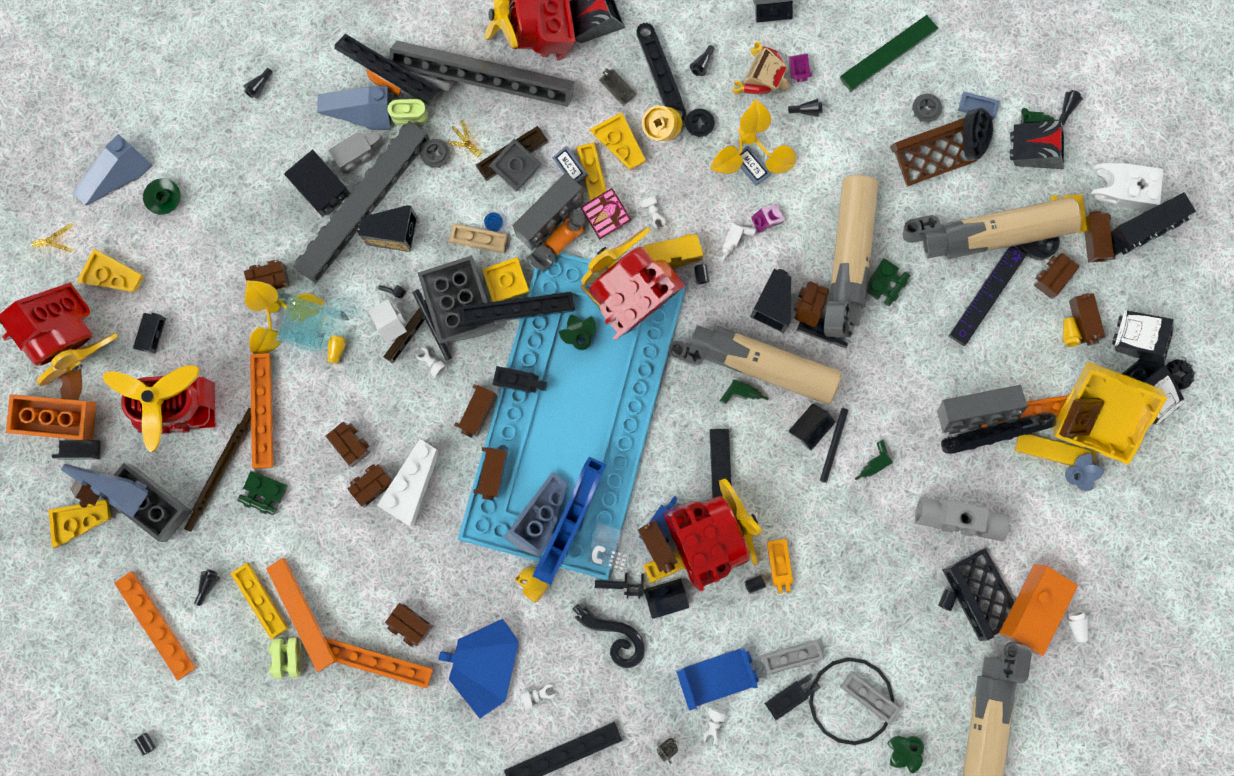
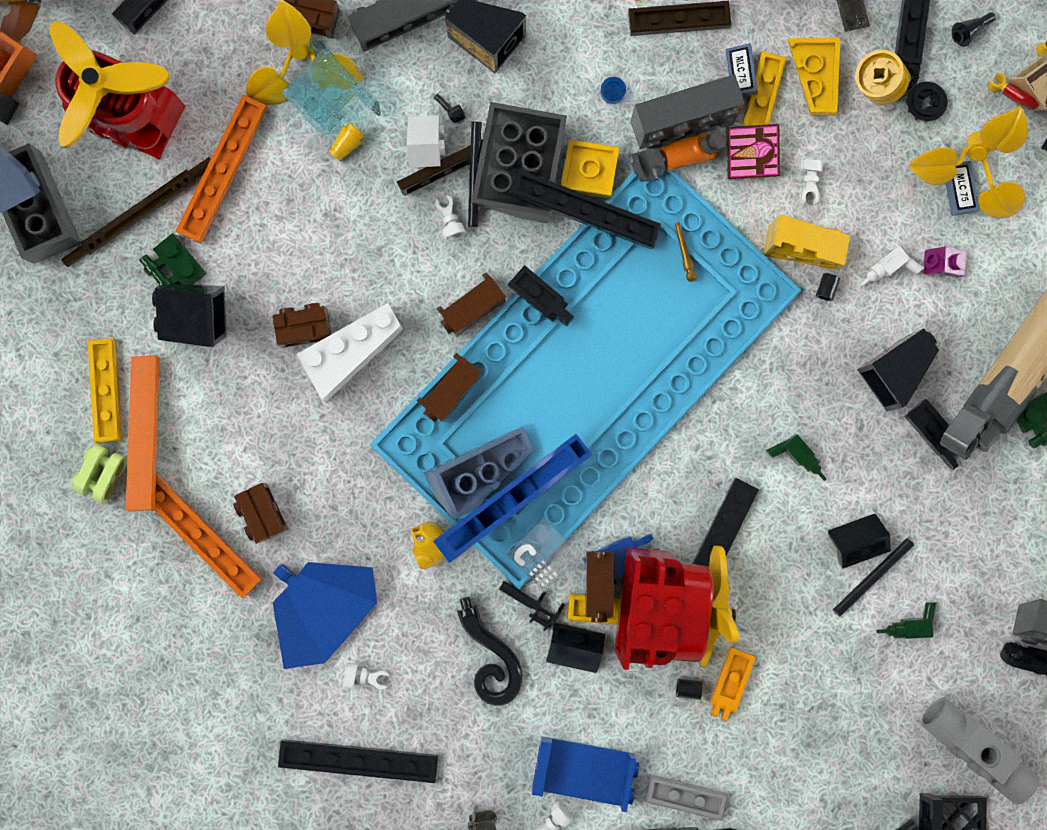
camera: 25 degrees right, 5 degrees up
(207, 581) = (55, 336): black cone -> none
(291, 517) = (190, 314): none -> black slope
(348, 444) = (301, 263): reddish brown brick -> none
(478, 238) = (584, 100): tan tile -> none
(515, 164) = (676, 34): dark grey tile -> none
(577, 329) = (643, 274): dark green plate -> none
(630, 286) = (736, 255): brick -> none
(761, 362) = (843, 433): tan piece -> none
(811, 303) = (942, 394): reddish brown brick -> none

